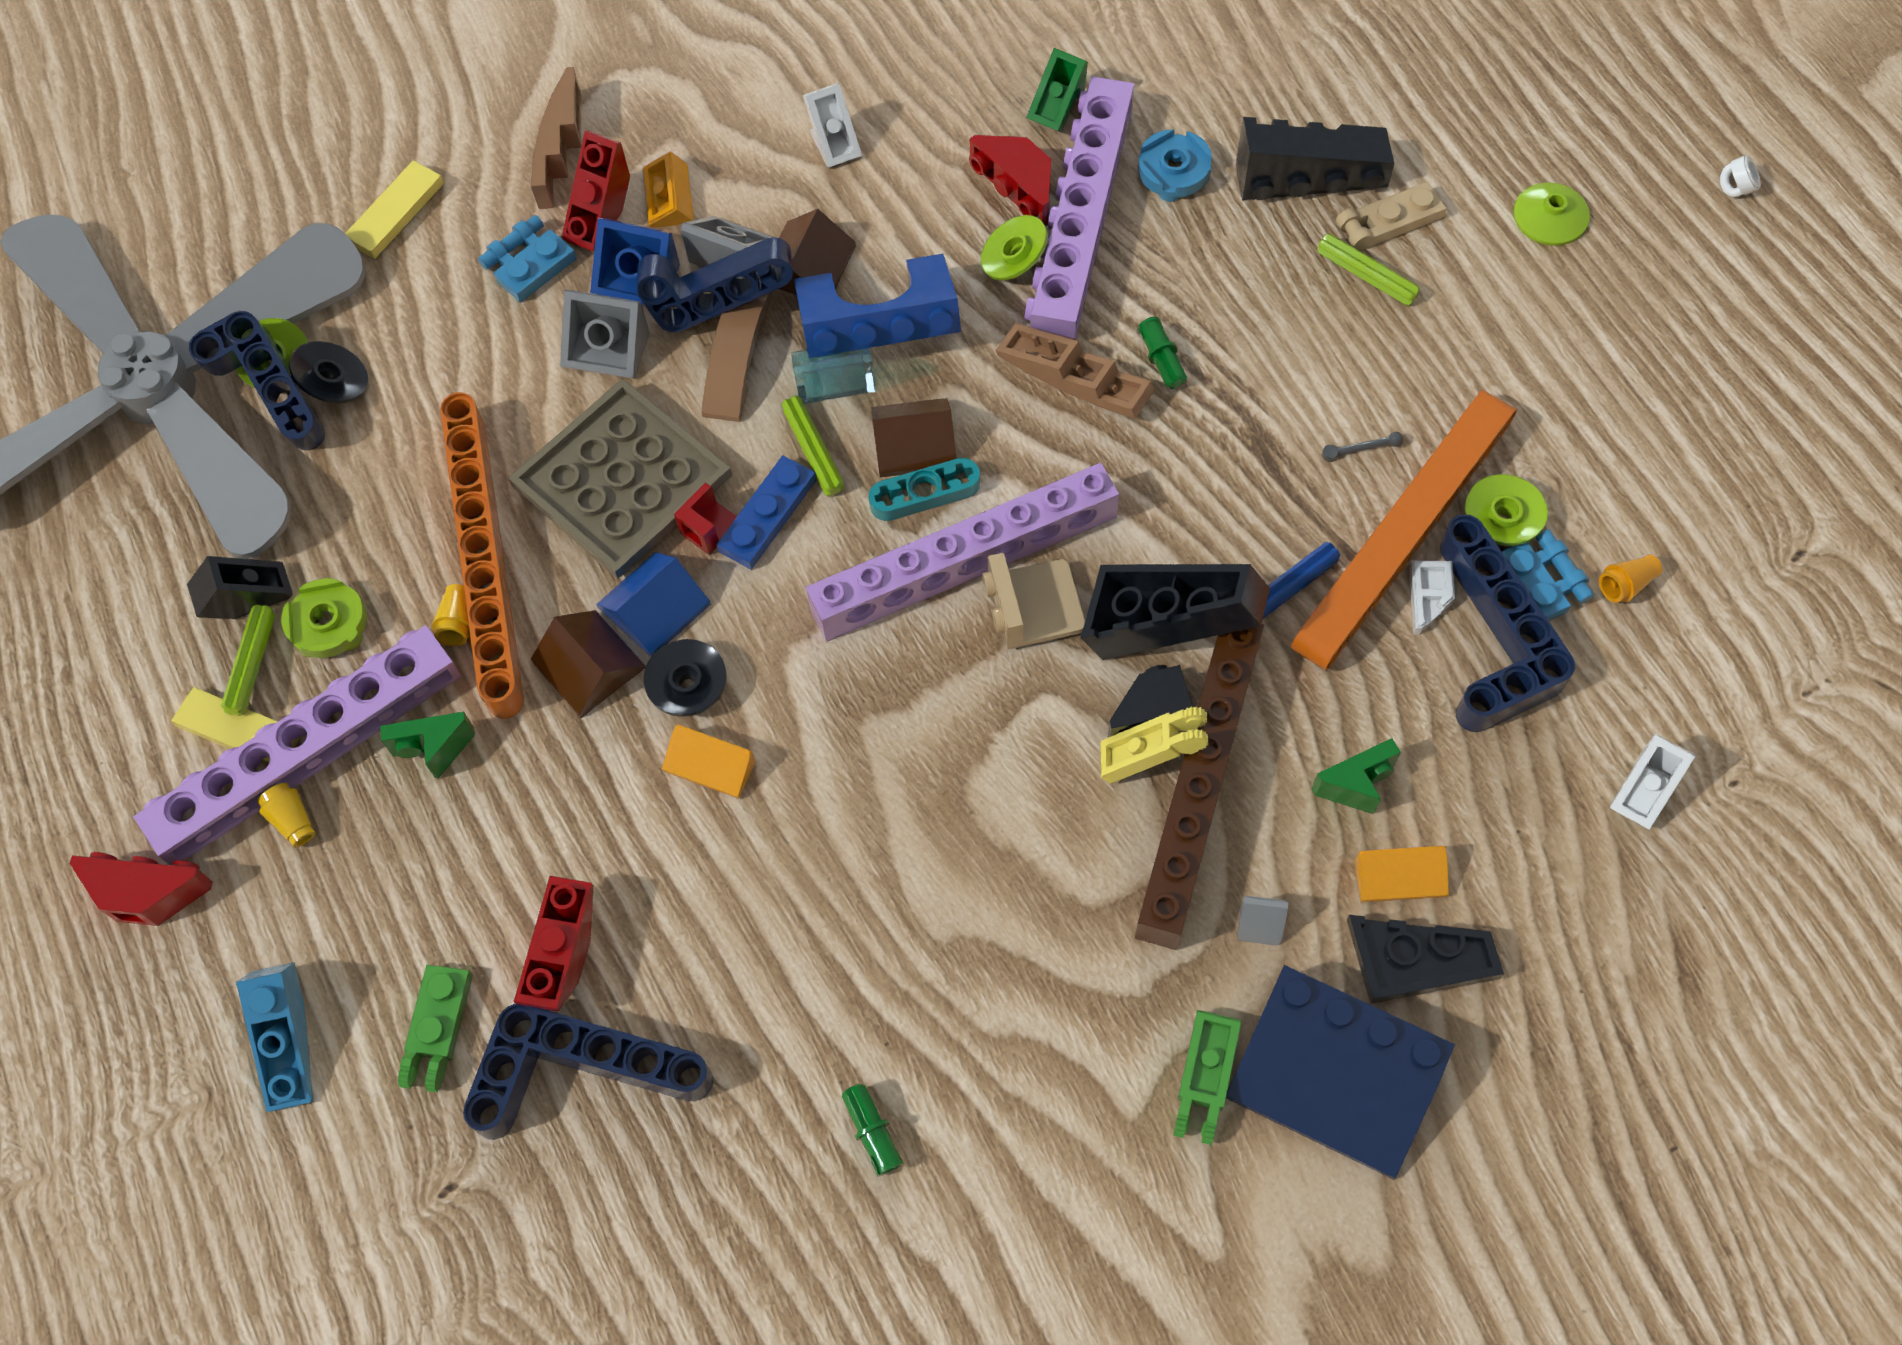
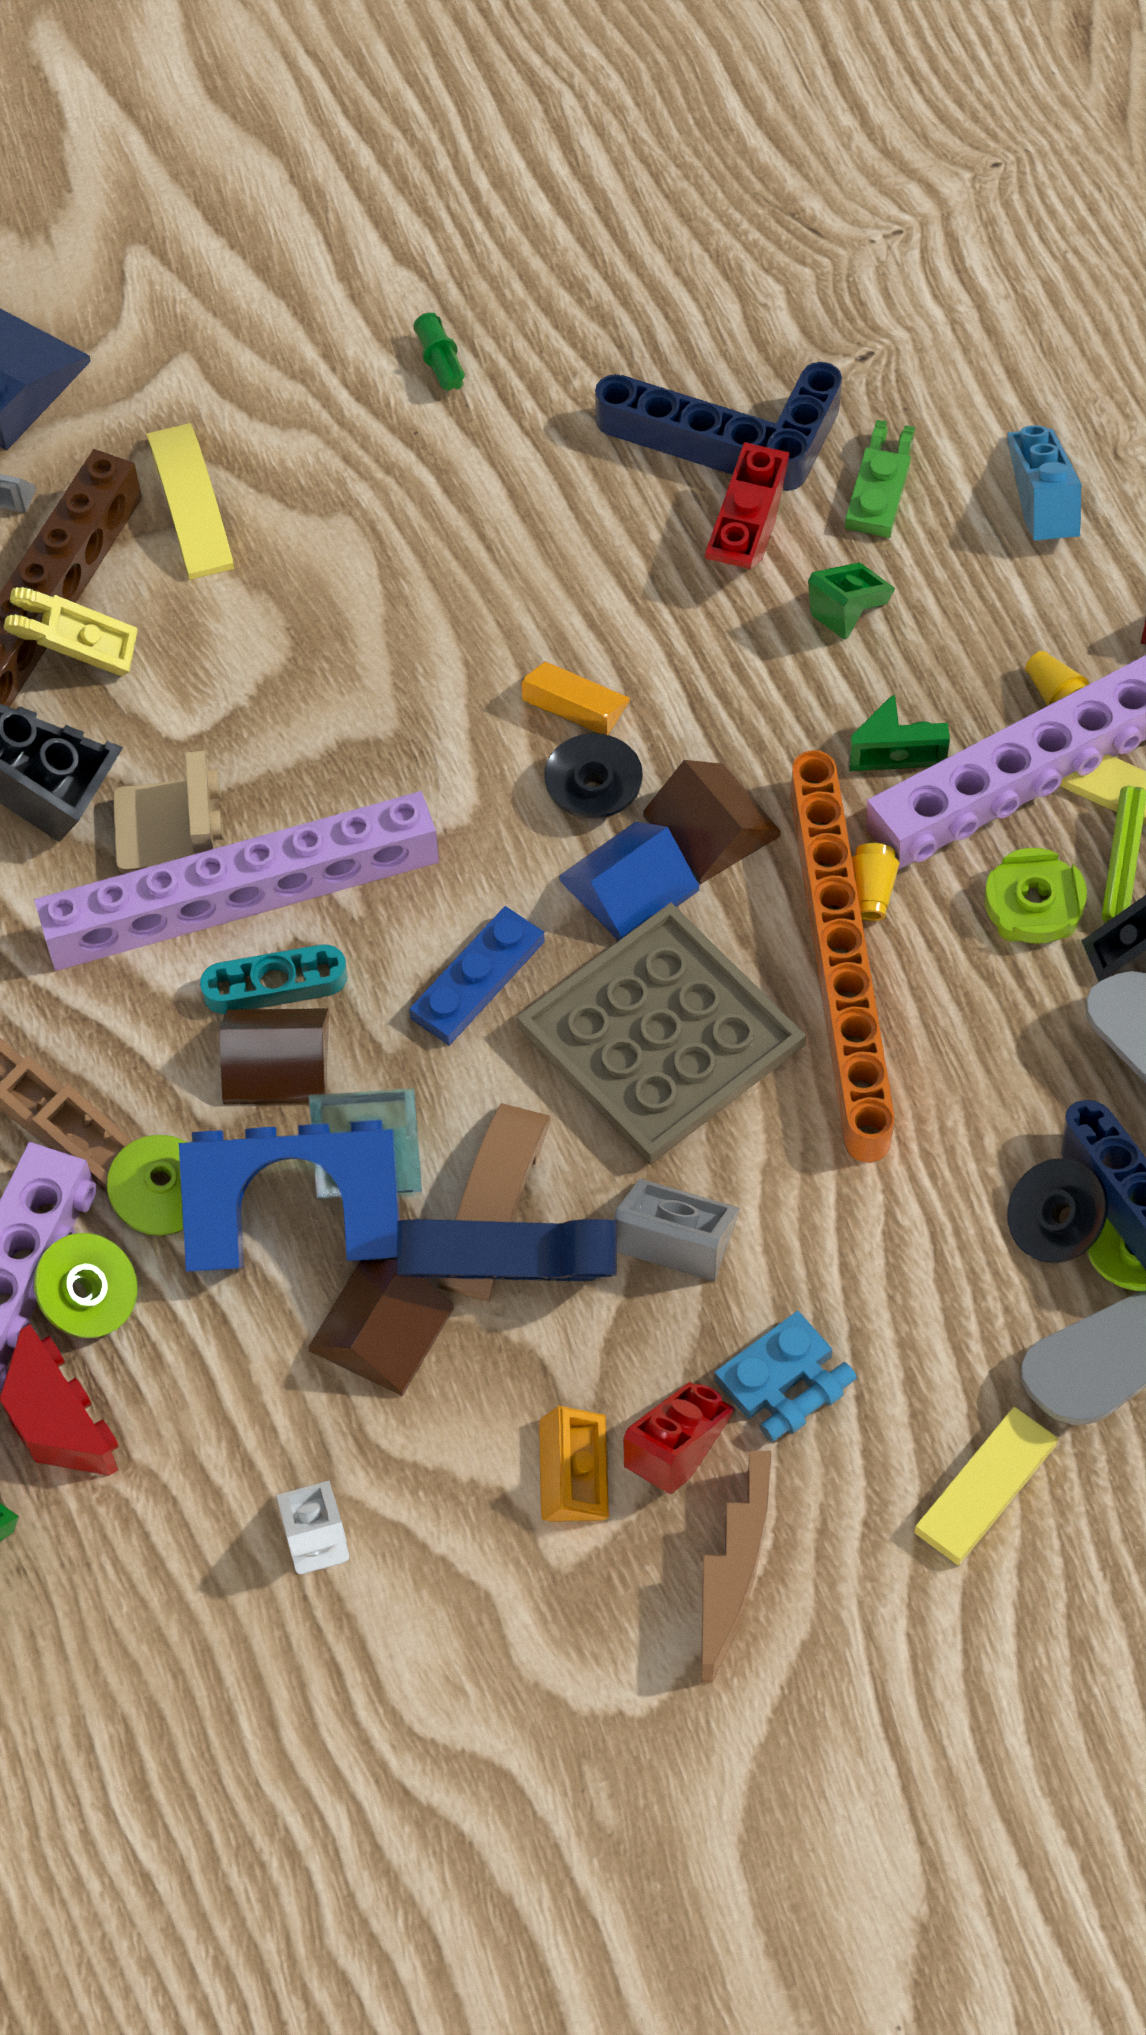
camera: 175 degrees left, 5 degrees down
(463, 876) = (843, 593): none -> green slope
(618, 252) = (626, 1332): blue slope -> none
(703, 519) = (558, 959): red panel -> none
(716, 238) = (486, 1346): light grey slope -> none
(813, 446) = (408, 1049): lime axle -> none
(985, 333) = (133, 1194): none -> lime dish
(1090, 937) = (191, 501): none -> light yellow slope
(1150, 696) = (67, 688): black slope -> none
(1207, 1071) = (101, 368): bright green hinge -> none

